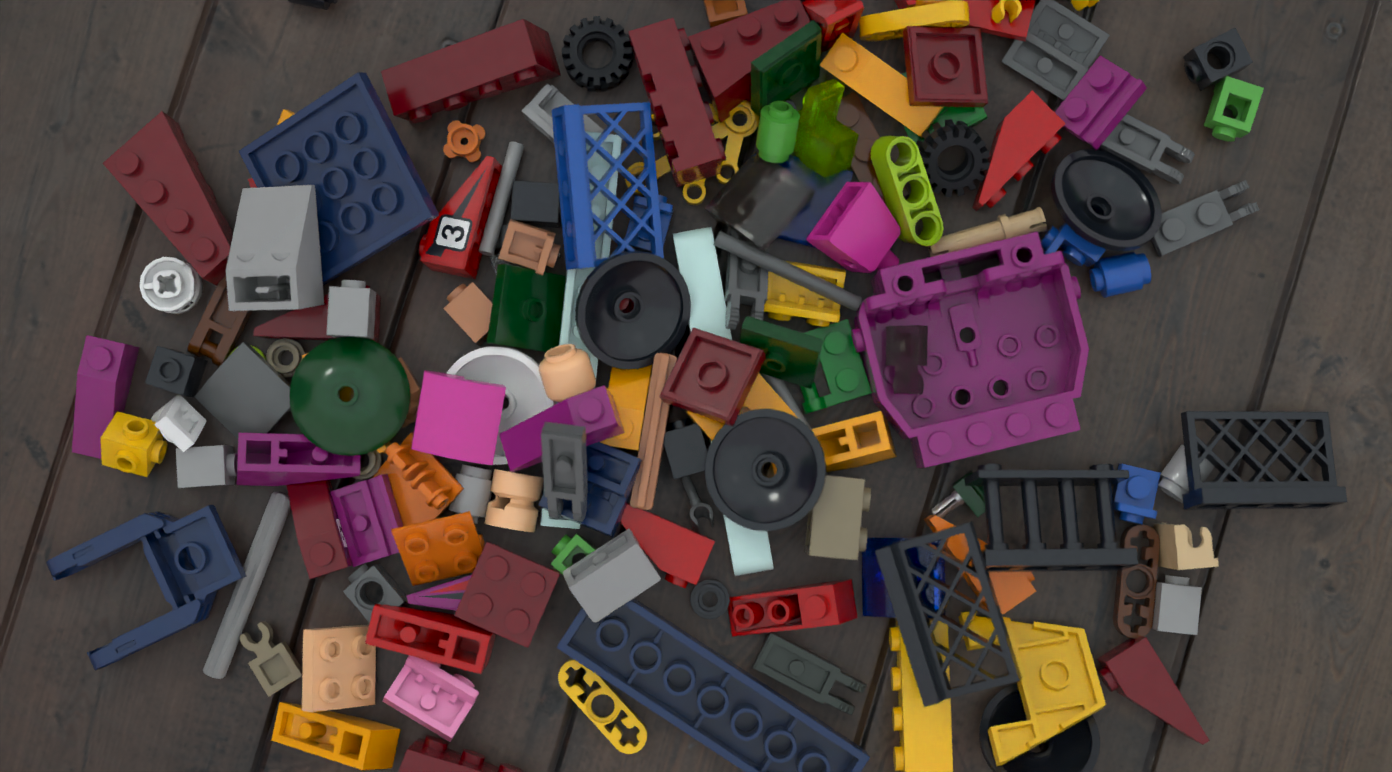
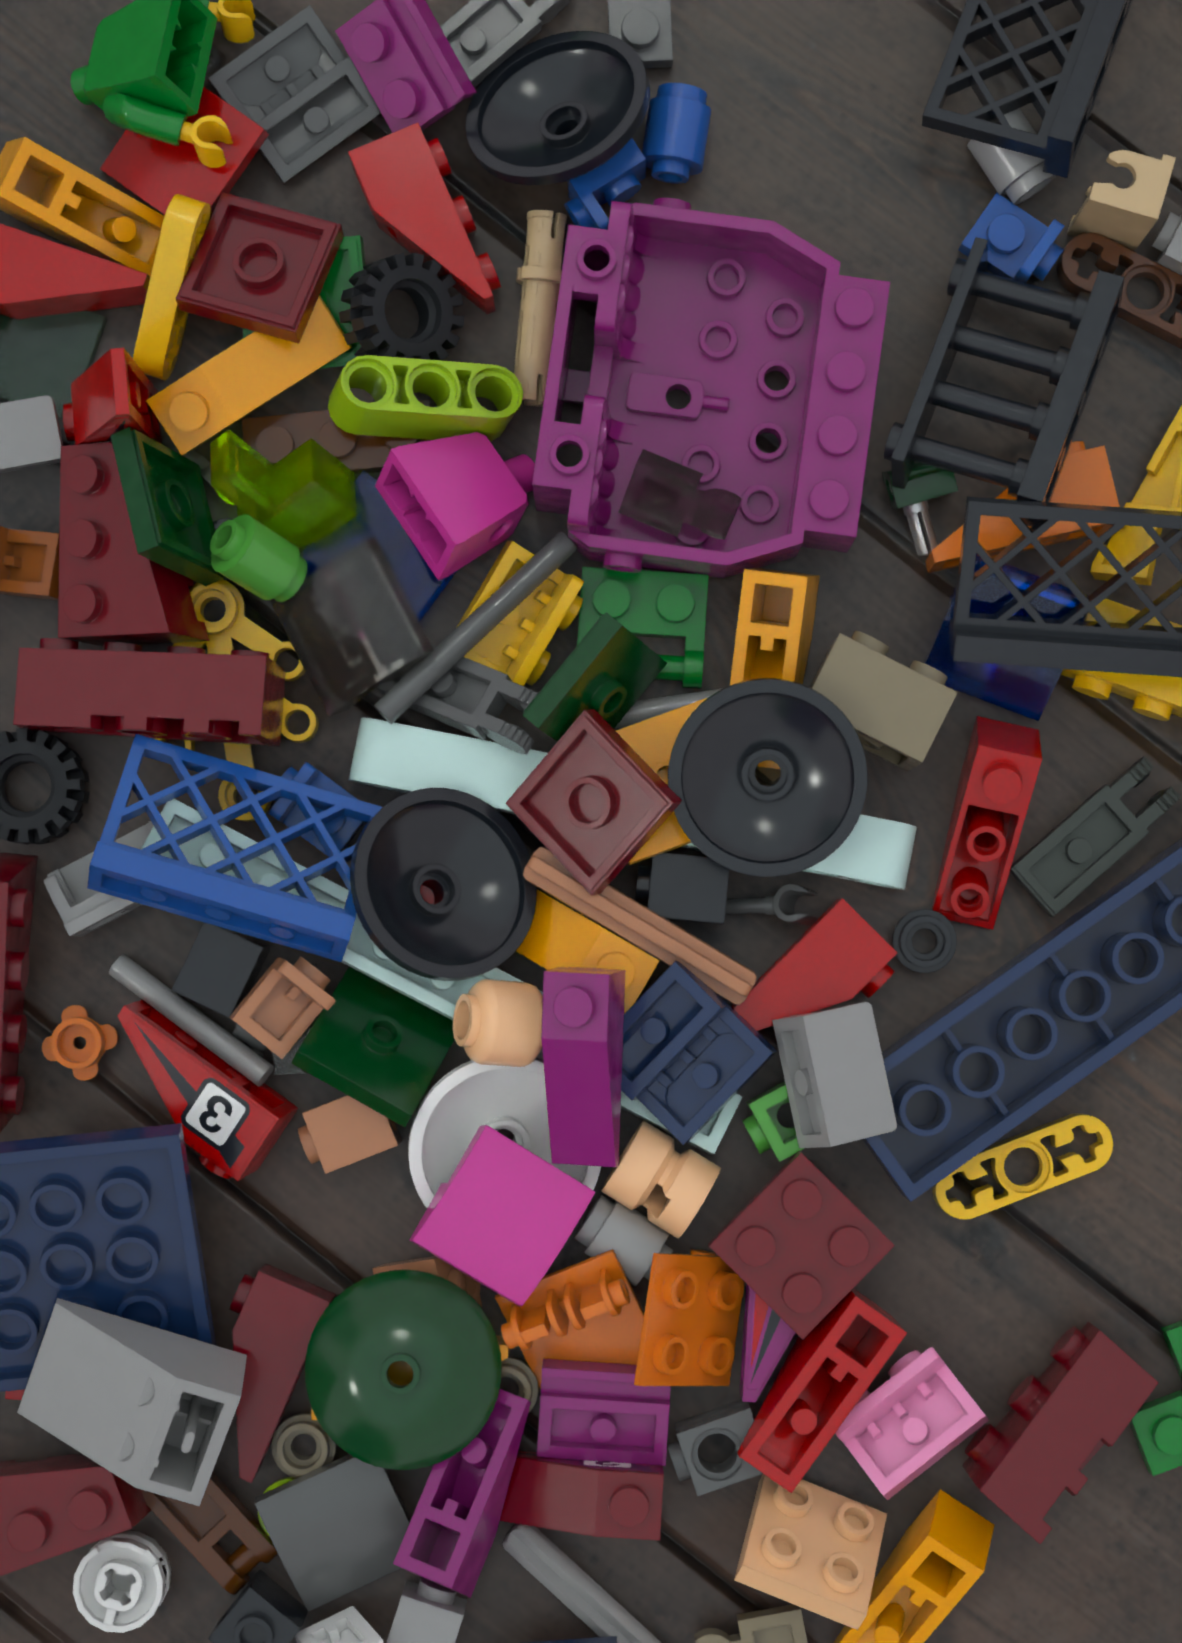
camera: 60 degrees left, 0 degrees up
(351, 310) = (273, 1316): light grey brick -> none
(565, 468) = (646, 1081): dark grey hinge -> none

